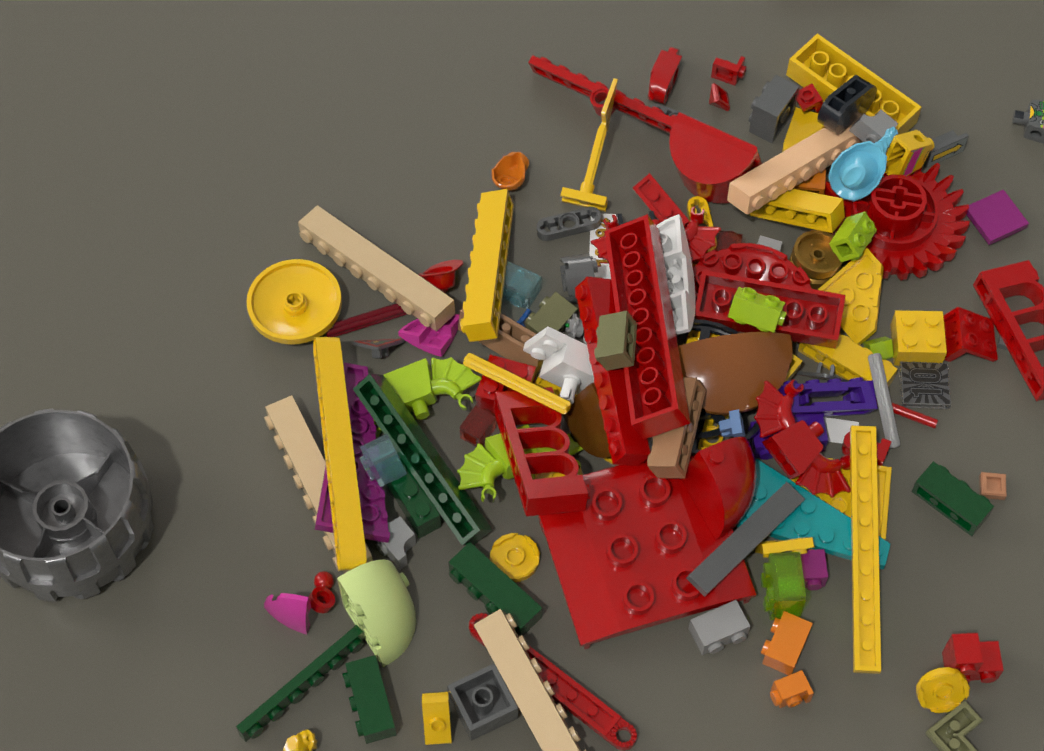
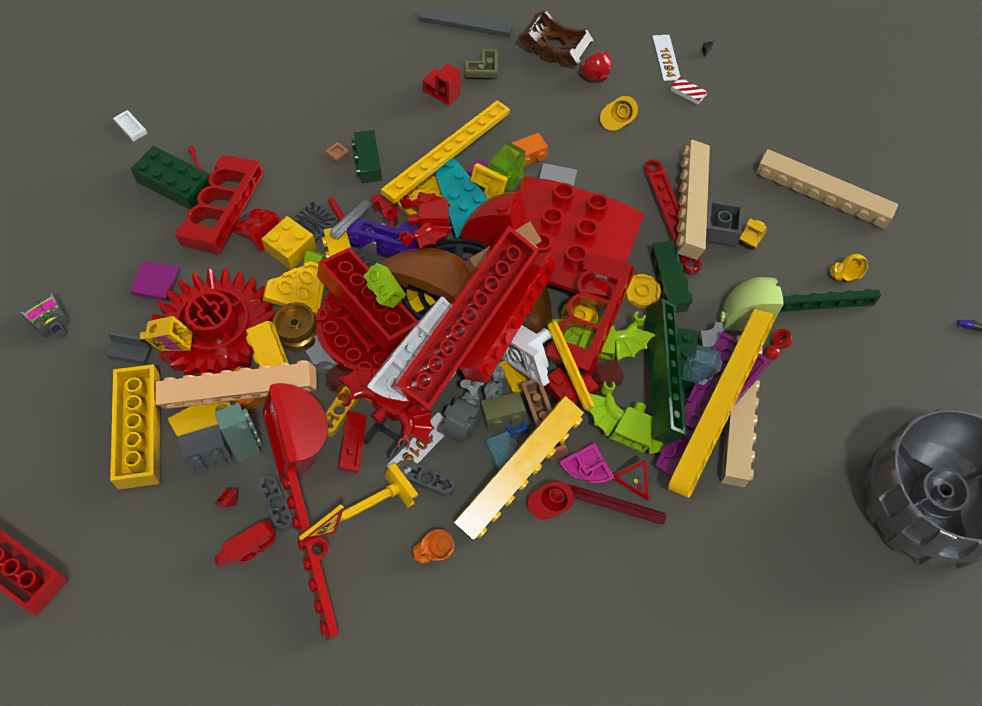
camera: 145 degrees left, 0 degrees up
(290, 610) = (810, 341): dark pink brick -> none
(294, 301) = (677, 552): yellow dish -> none
(369, 699) = (787, 265): dark green brick -> none
(377, 268) = (598, 538): tan brick -> none
(616, 340) = (501, 306): olive brick -> none
(727, 71) = (196, 511): red bracket -> none
(732, 426) = (463, 242): medium blue tile -> none
(745, 539) = (526, 187): dark grey tile -> none
(754, 113) = (239, 432): none -> sand green brick
(791, 690) = (548, 130): orange brick -> none
(809, 99) = (170, 441): red bracket -> none
(847, 104) = (166, 390): black brick -> none
(853, 237) = (263, 307): lime brick -> none
(860, 167) = (205, 338): medium azure hat -> none
(872, 128) = (166, 365): light grey brick -> none
(942, 689) = (473, 79): yellow tile -> none

